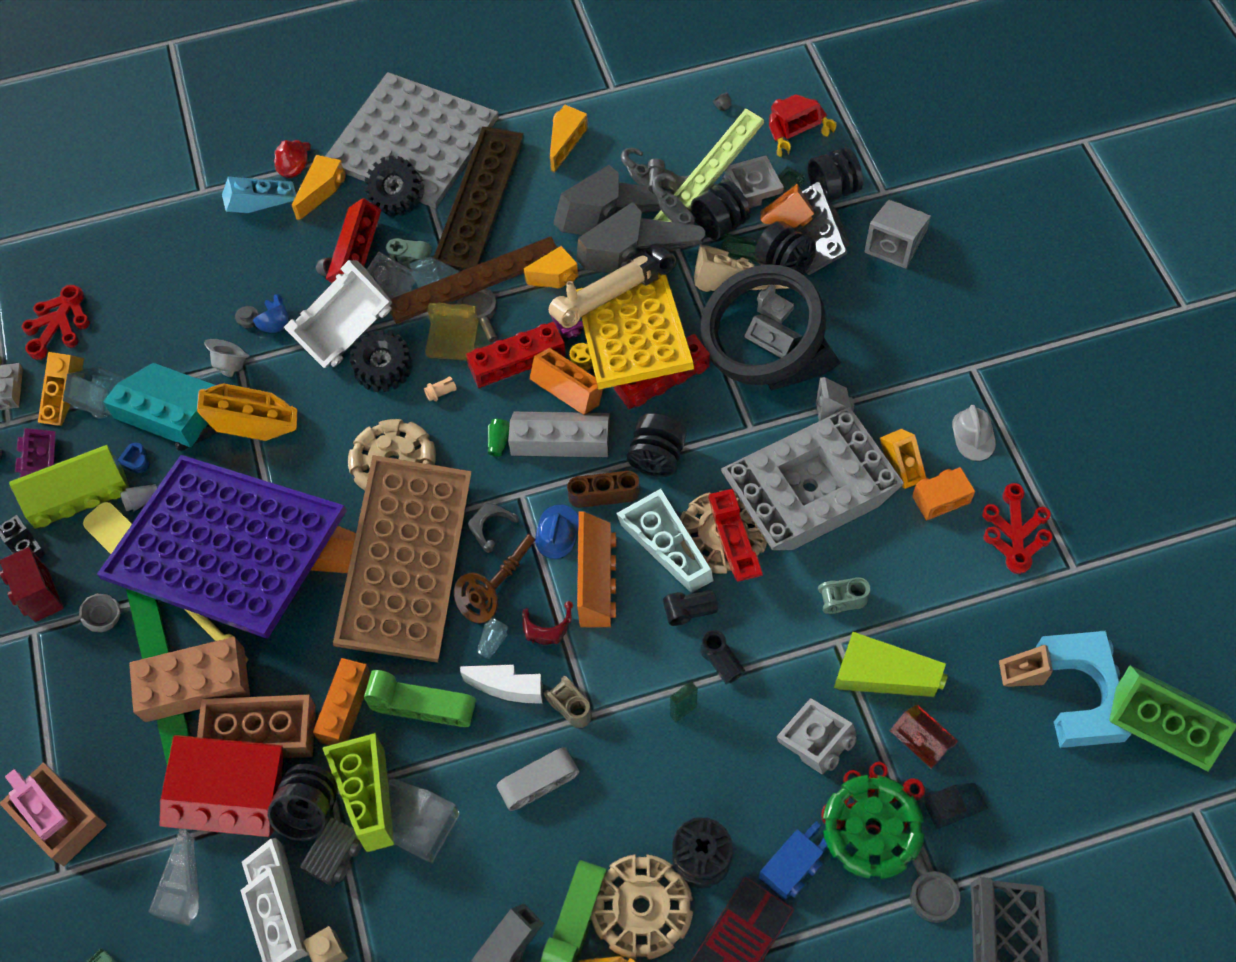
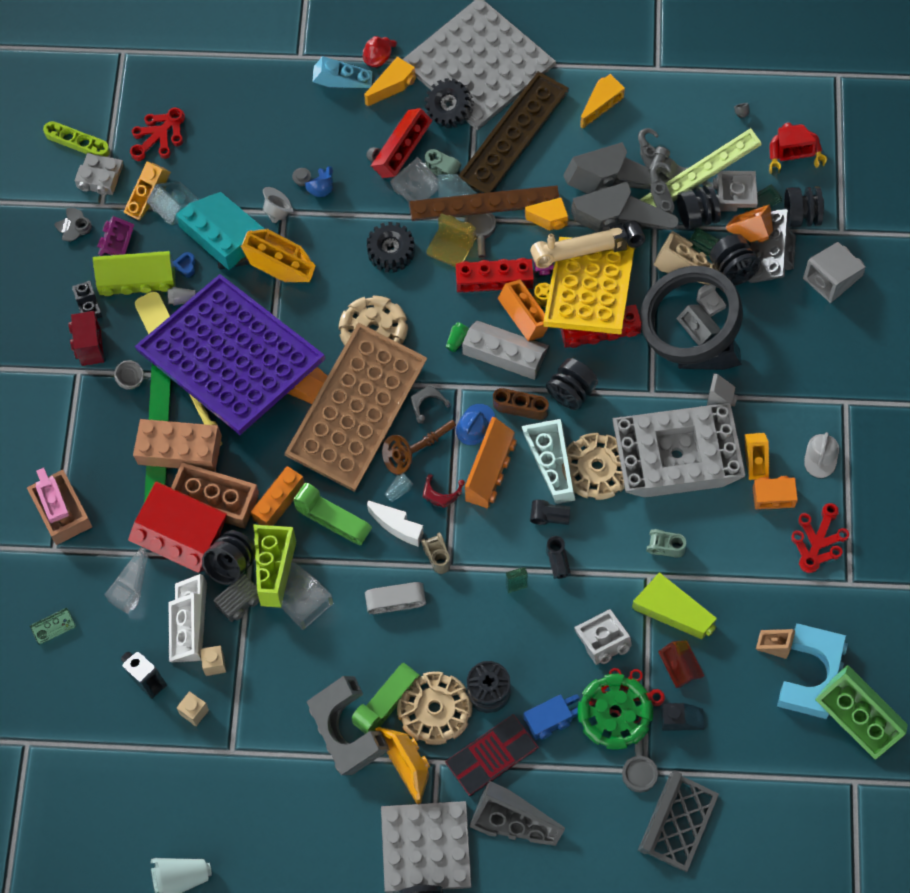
camera: 20 degrees right, 5 degrees up
(340, 315) = (371, 201): white windscreen -> none
(439, 389) = (427, 284): light nougat pin -> none
(733, 536) = (601, 472): red slope -> none

